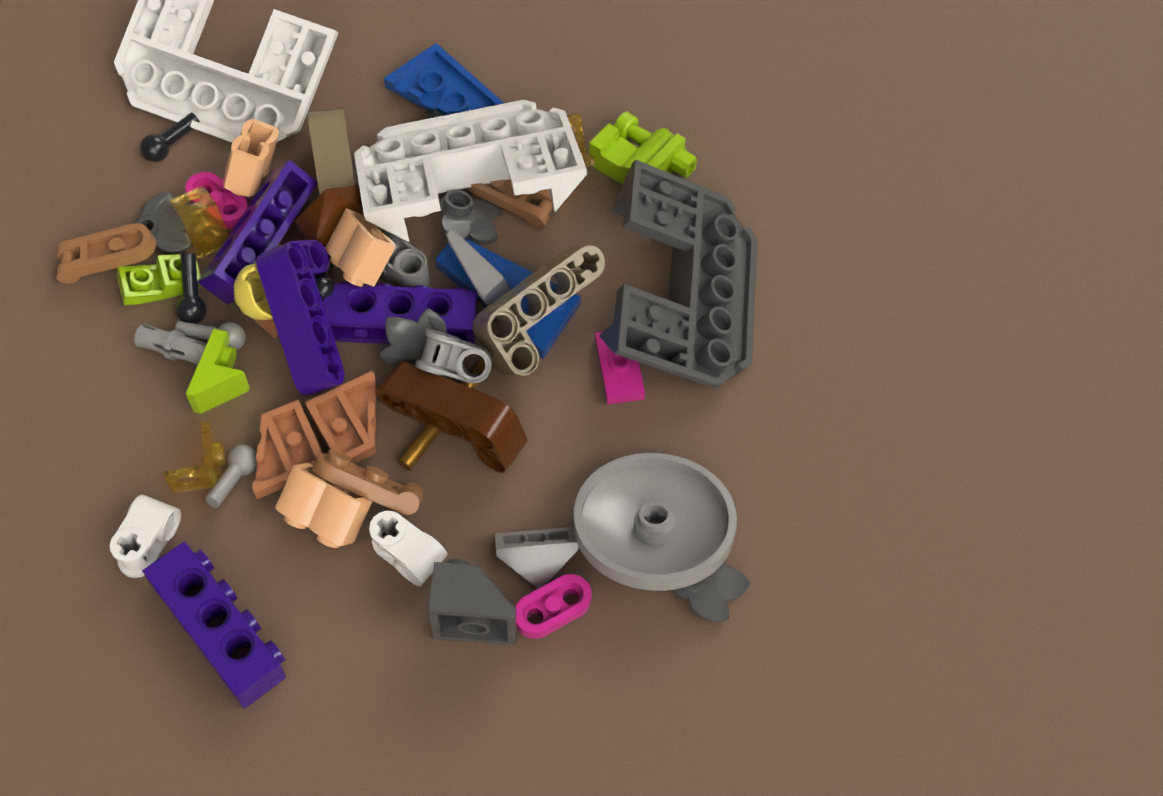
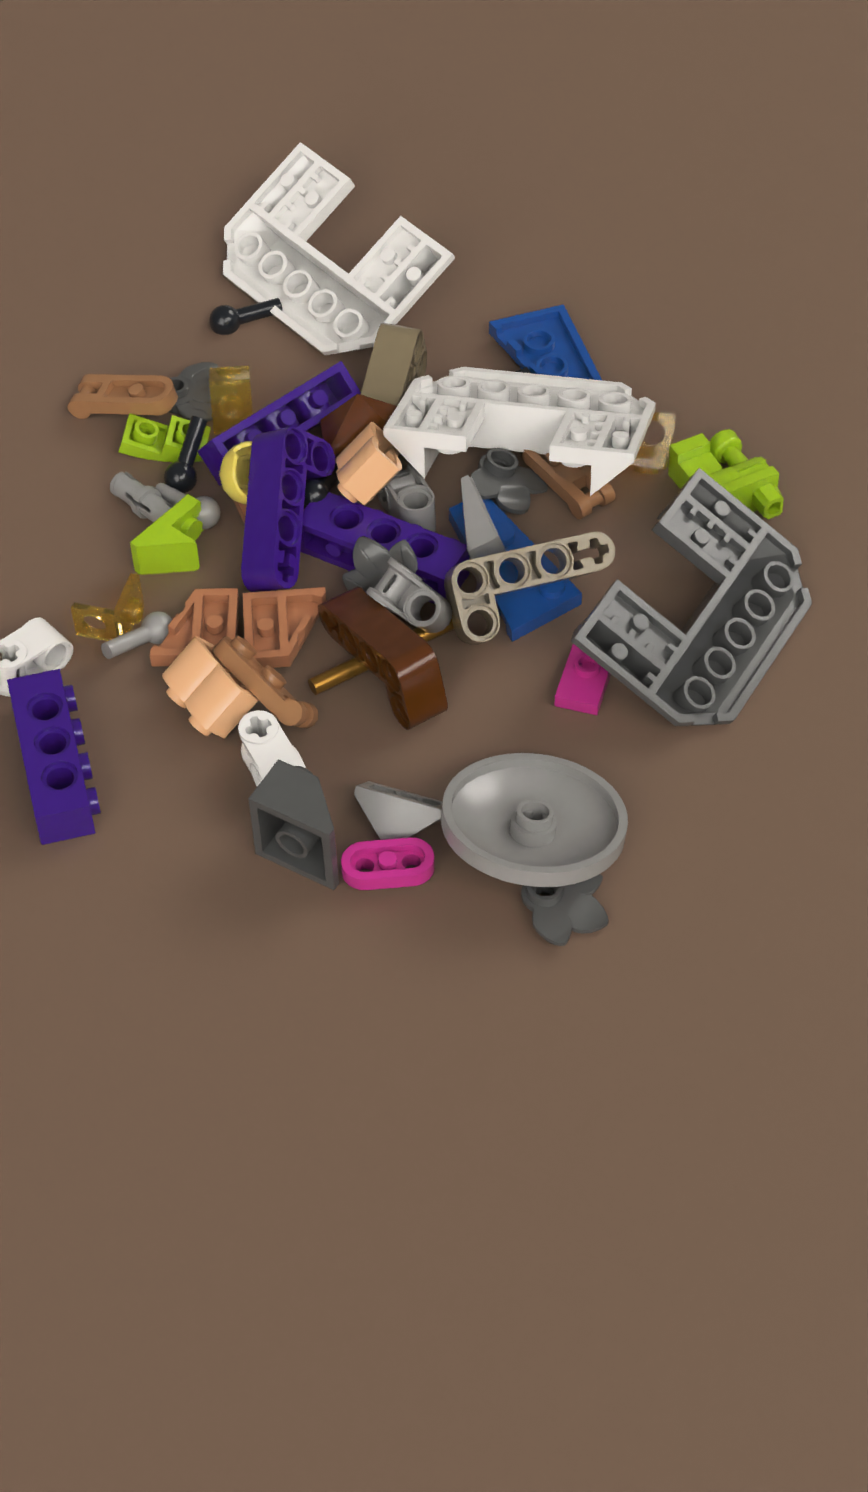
camera: 30 degrees right, 10 degrees down
(225, 200) = (264, 380): dark pink plate -> none
(250, 158) = (307, 351): light nougat brick -> none

